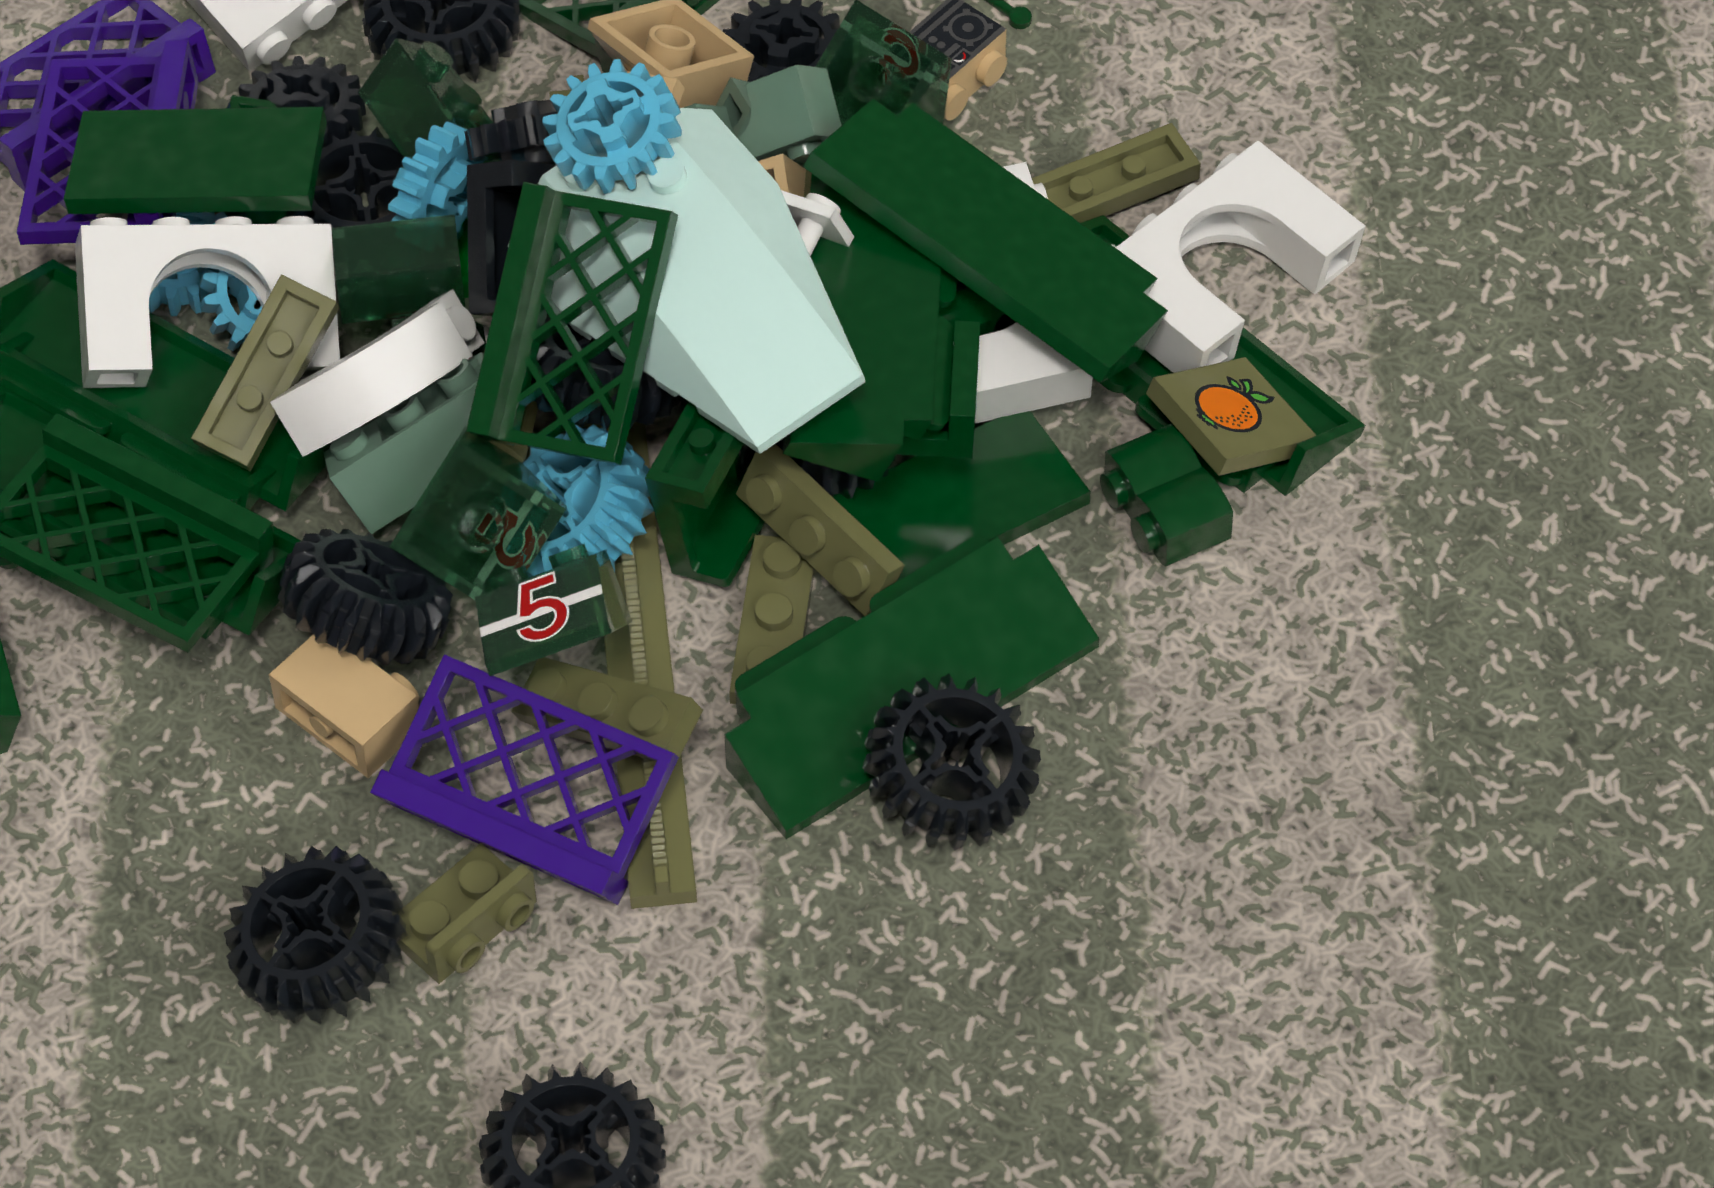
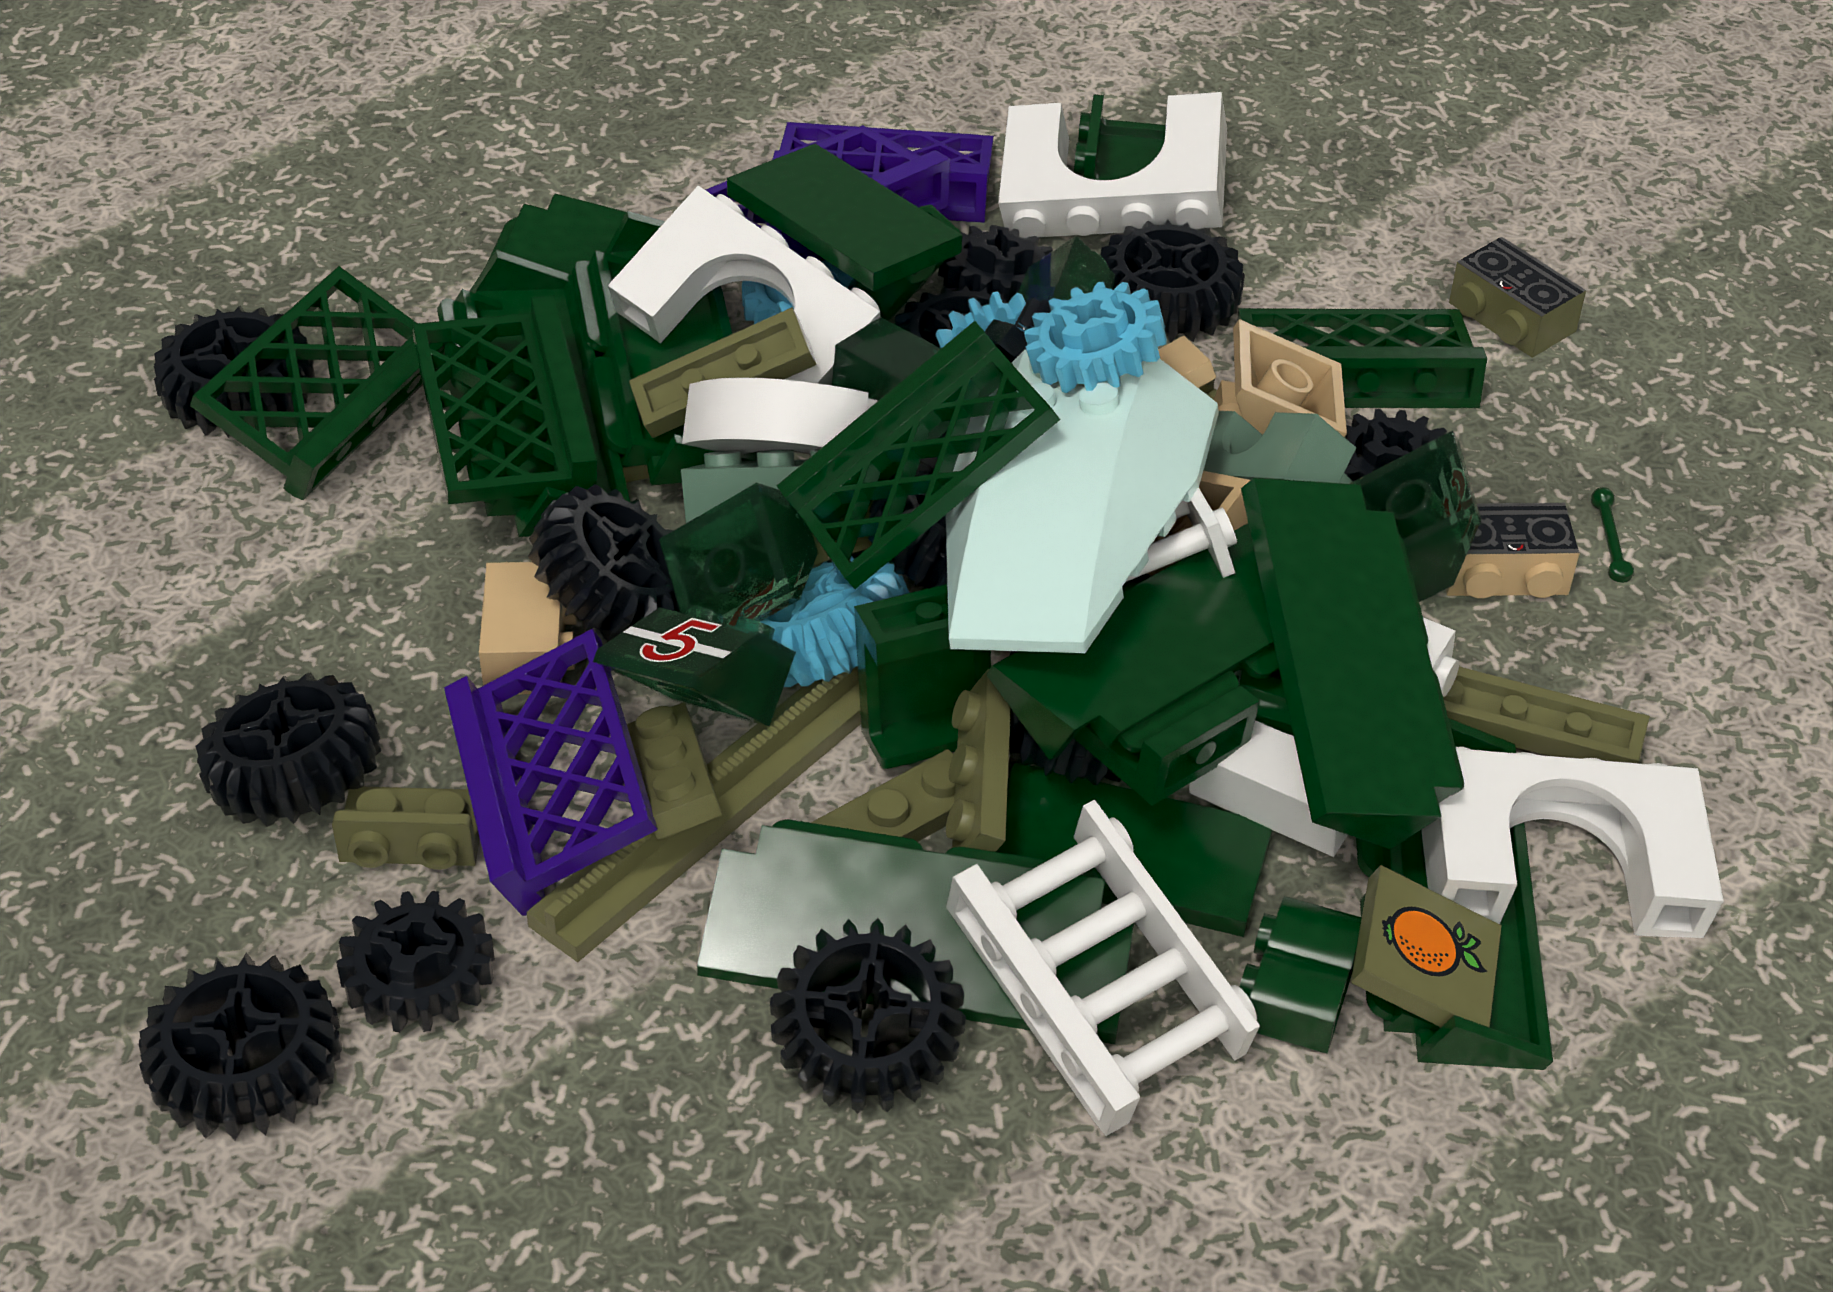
camera: 45 degrees right, 10 degrees down
(605, 1002) = (421, 958): none -> black gear
(1042, 651) = (1068, 1024): none -> white fence

